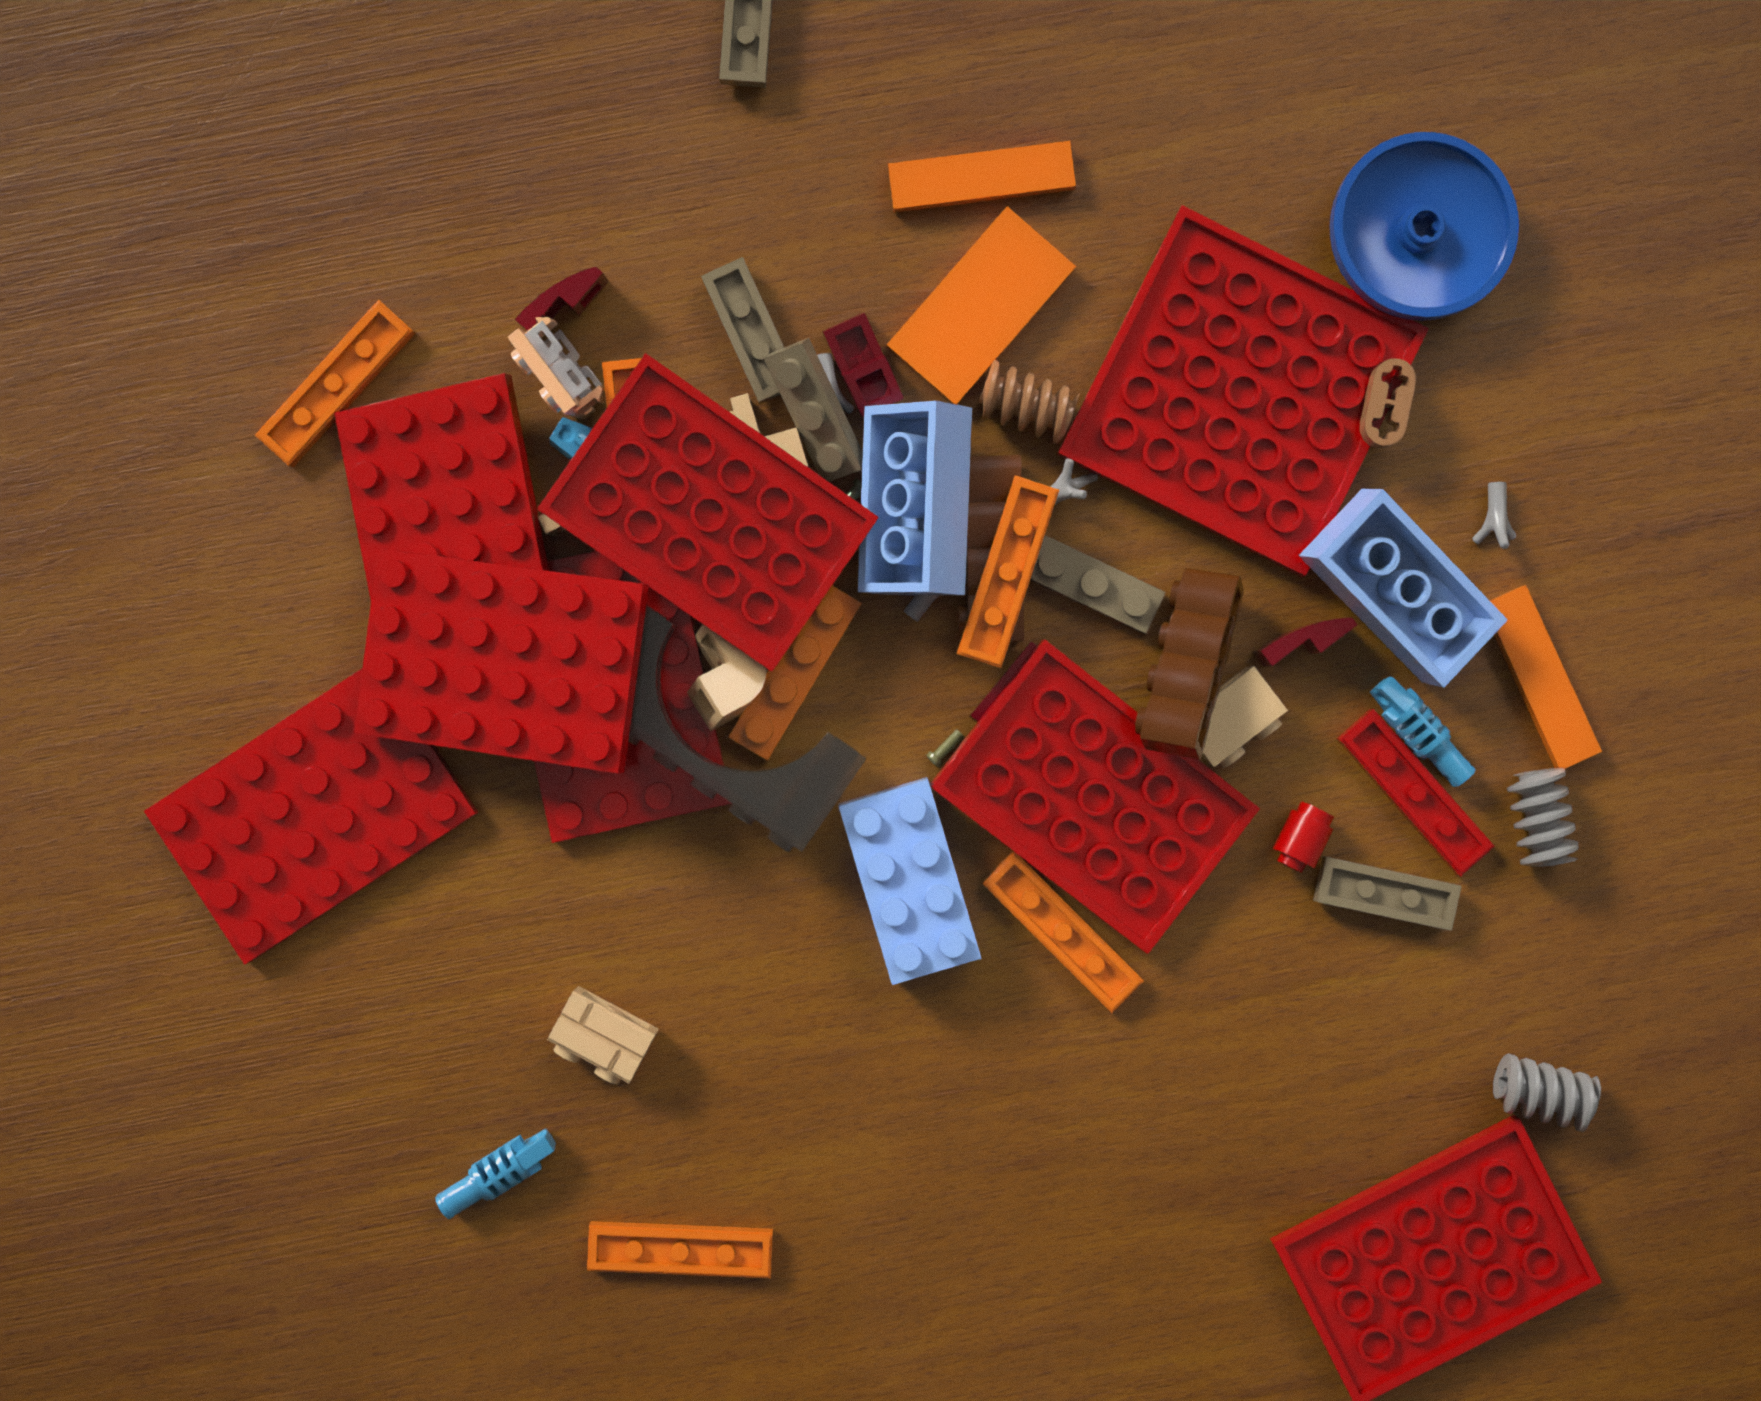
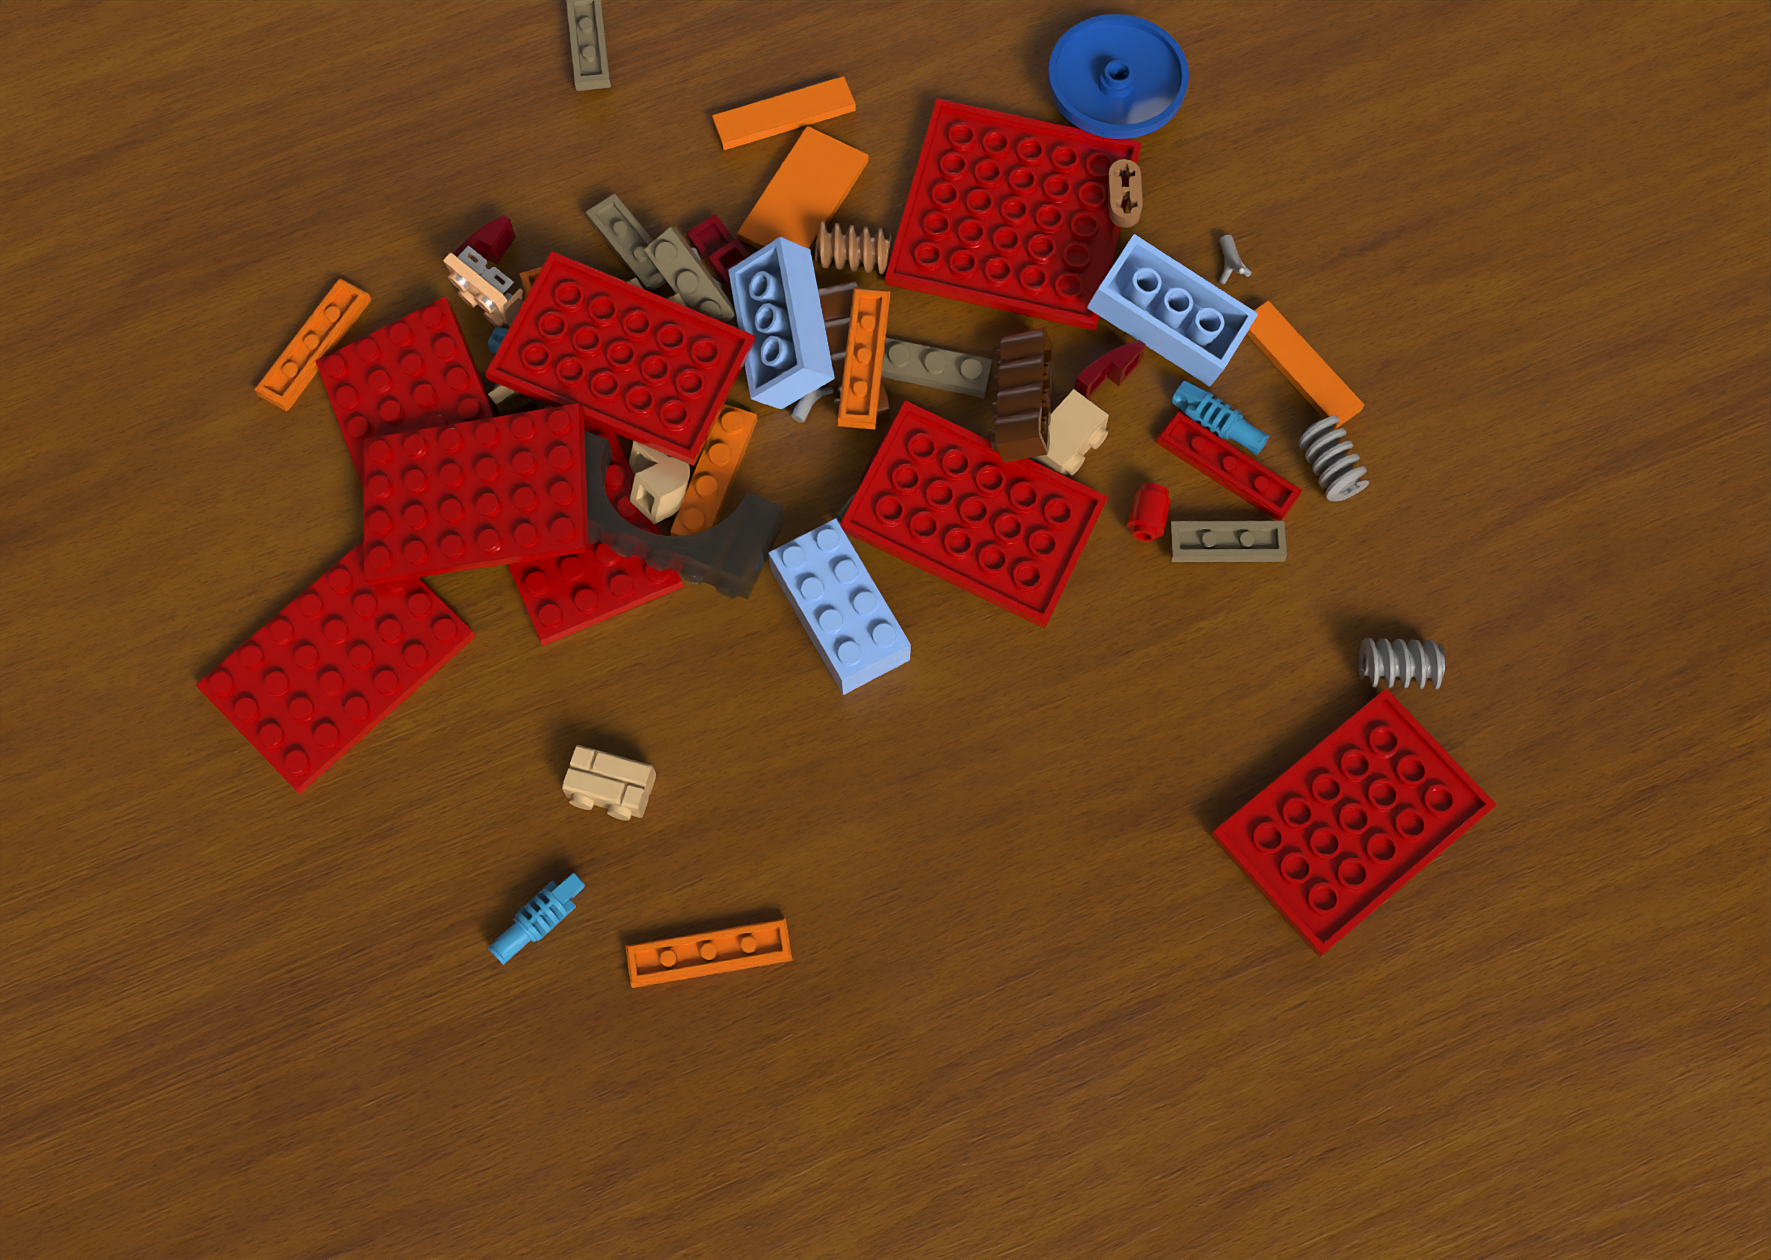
camera: 15 degrees left, 20 degrees down
(1062, 931) = (974, 627): orange tile -> none
(1070, 487) = (899, 302): light grey bar -> none

